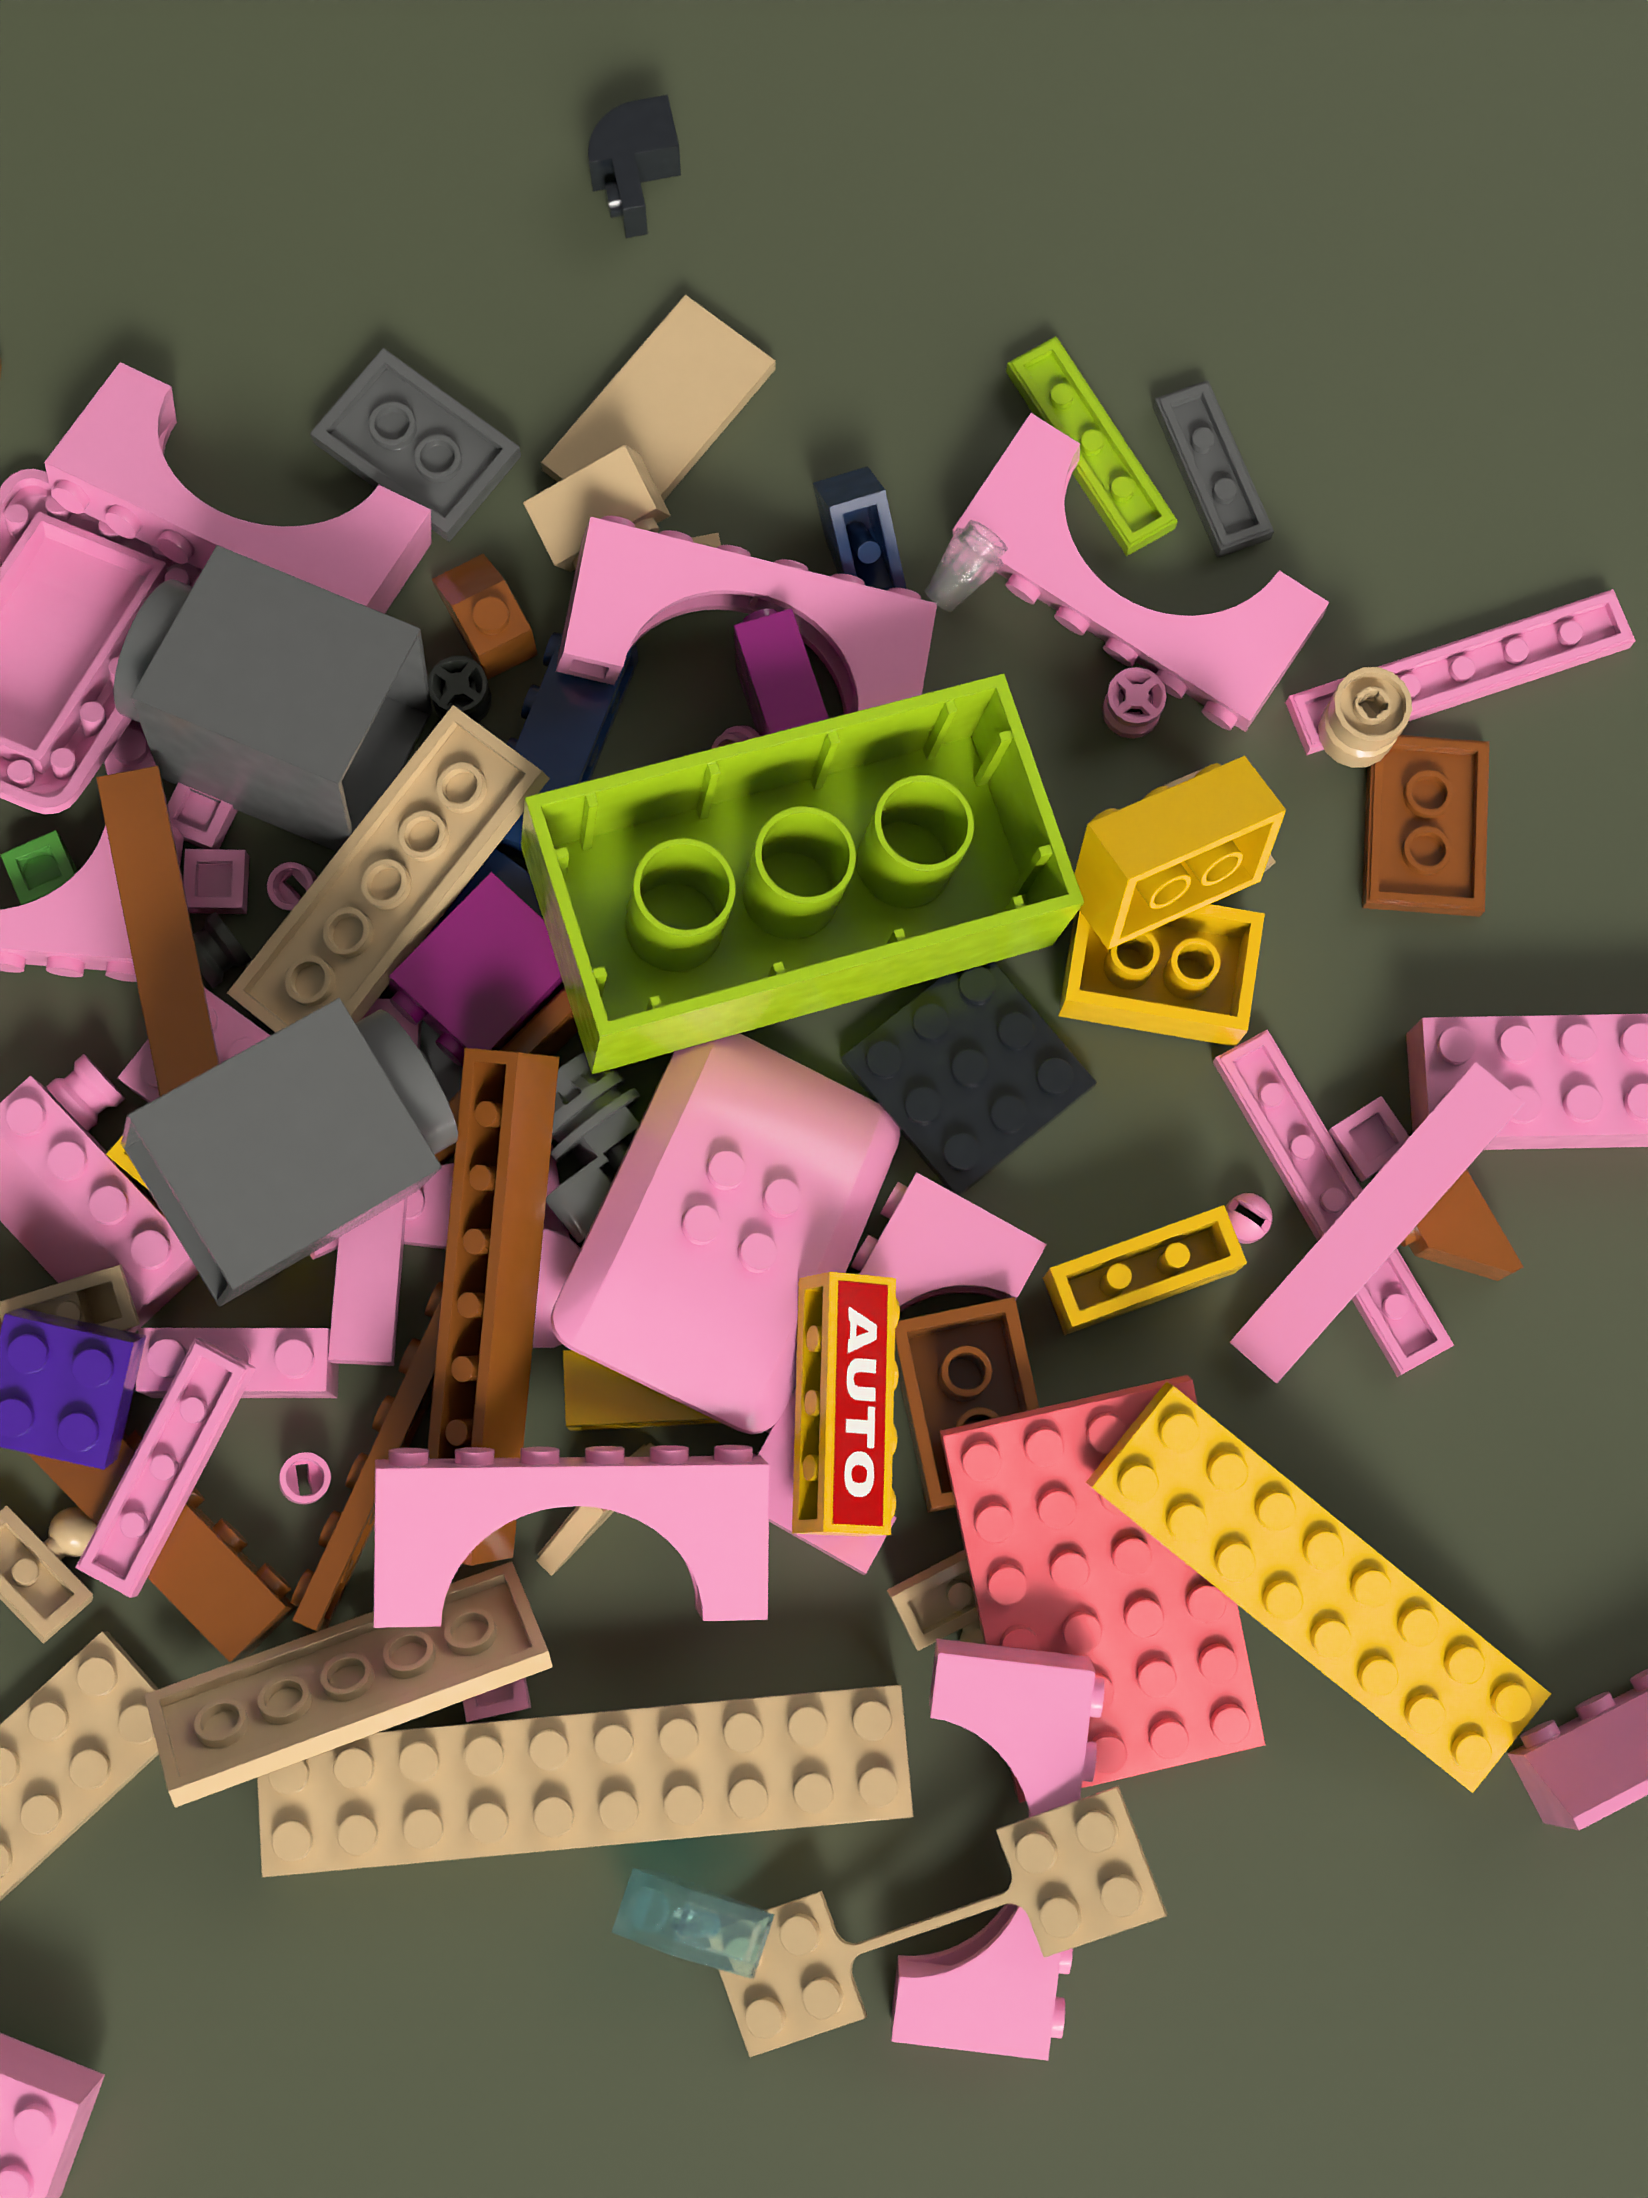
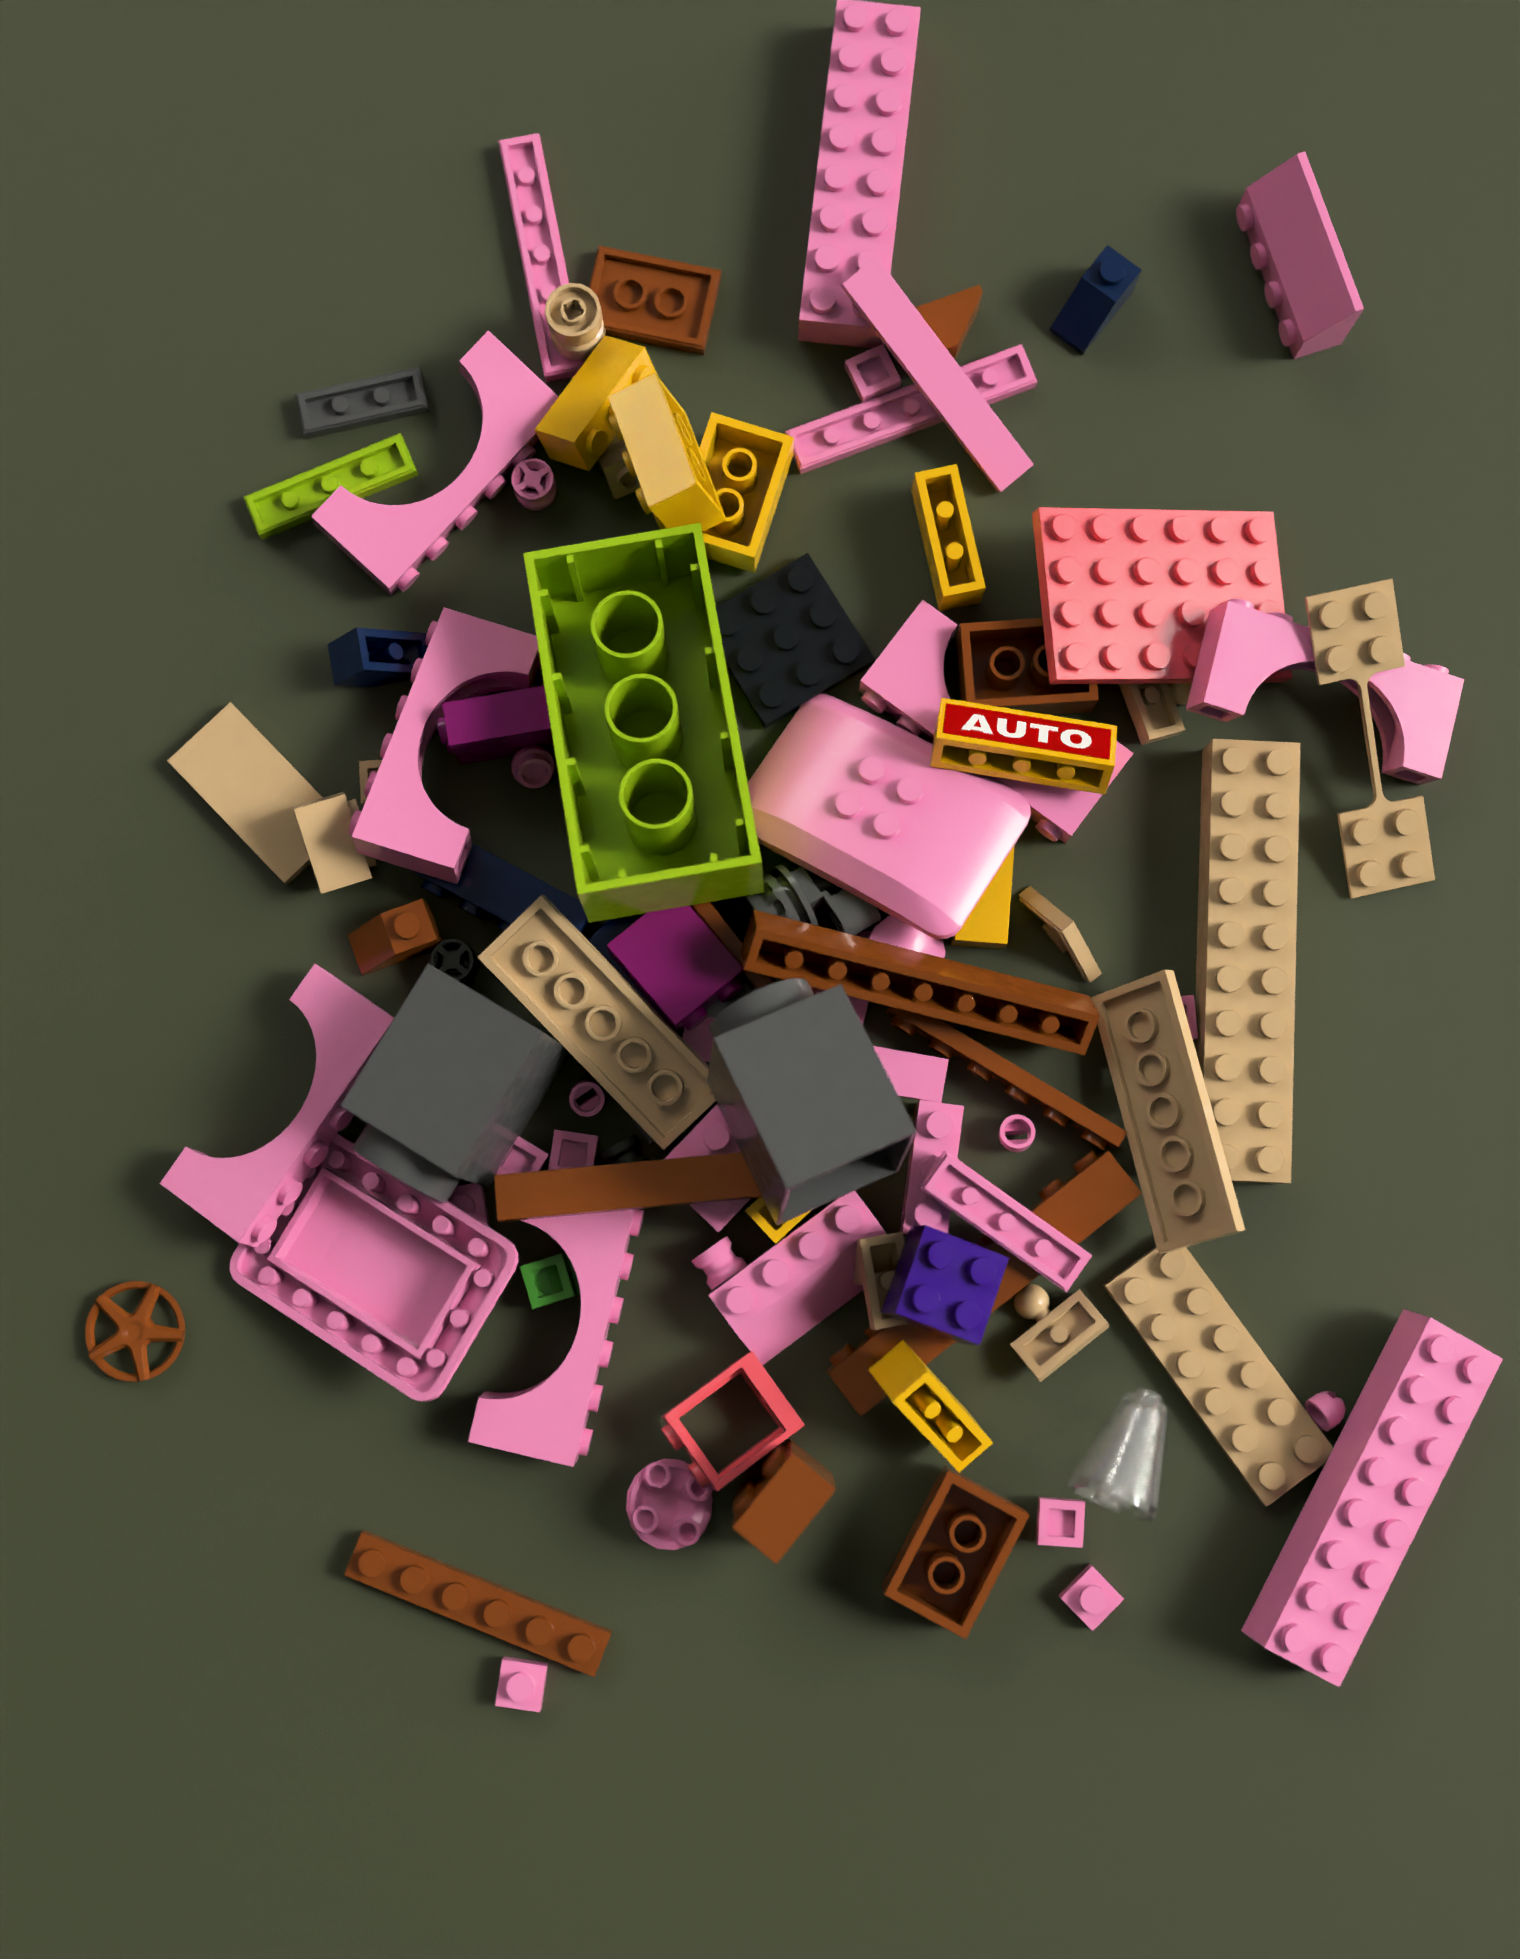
camera: 75 degrees left, 5 degrees up
(416, 442) = (253, 973): dark grey plate -> none
(443, 1508) = (1066, 1024): bright pink arch -> none
(629, 148) = (41, 783): black brick -> none
(692, 1922) = (1349, 900): clear light blue slope -> none
(966, 564) = (418, 578): clear cone -> none
(1245, 1228) = (907, 459): bright pink hinge -> none
(1298, 770) = (578, 422): none -> yellow brick
(1318, 1586) = (1179, 454): yellow plate -> none
(1537, 1442) = (1096, 299): none -> dark blue slope

